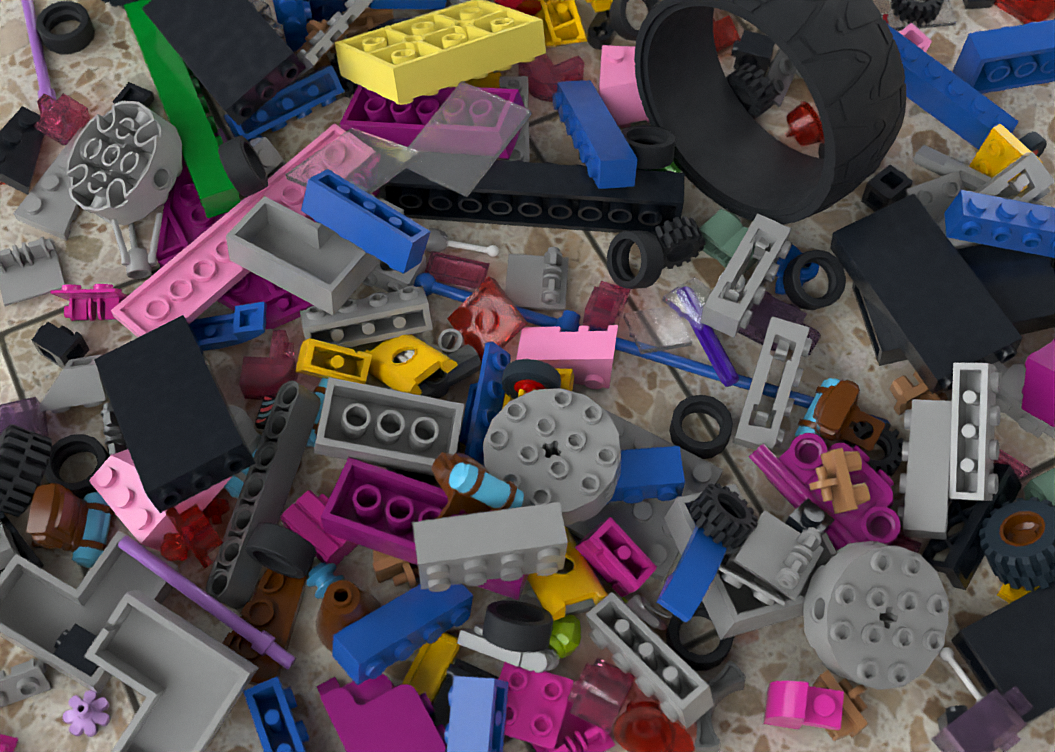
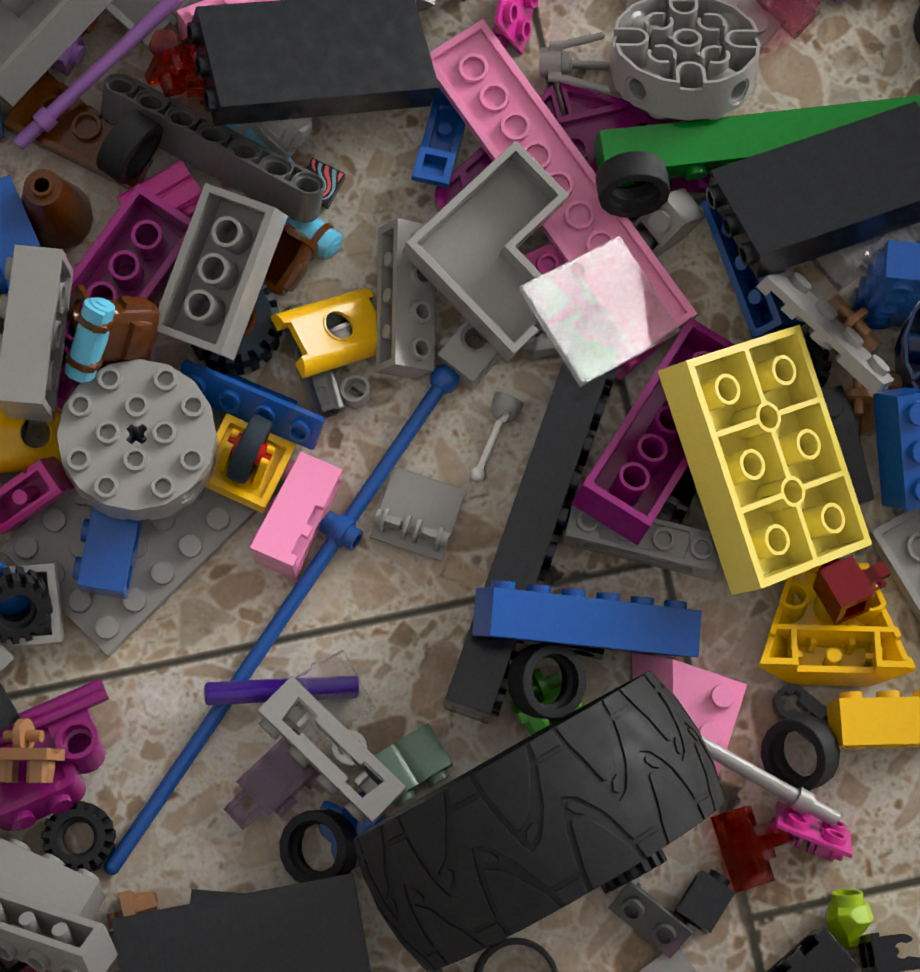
camera: 100 degrees right, 15 degrees up
(135, 93) = (809, 88): black plate -> none
(268, 374) = (367, 186): clear pink brick -> none
(322, 577) = (101, 196): dark azure wheel -> none
(332, 361) = (351, 248): yellow brick -> none
(365, 221) = (483, 292): blue brick -> none
(457, 270) = (458, 423): clear pink tile -> none
(466, 137) = (593, 445): clear piece -> none
(487, 317) = (368, 435): clear red plate -> none
(544, 75) = (720, 610): clear pink brick -> none
(605, 306) = (344, 577): clear pink brick -> none
(651, 259) = (402, 630): black tyre -> none
(657, 329) = (307, 633): clear piece -> none
(679, 241) = (415, 689): black tyre -> none
(705, 405) = (149, 623): black tyre -> none
(787, 336) = (232, 771): light grey brick -> none
(804, 125) = (561, 930): clear red piece -> none
(835, 410) = (124, 793): reddish brown piece -> none

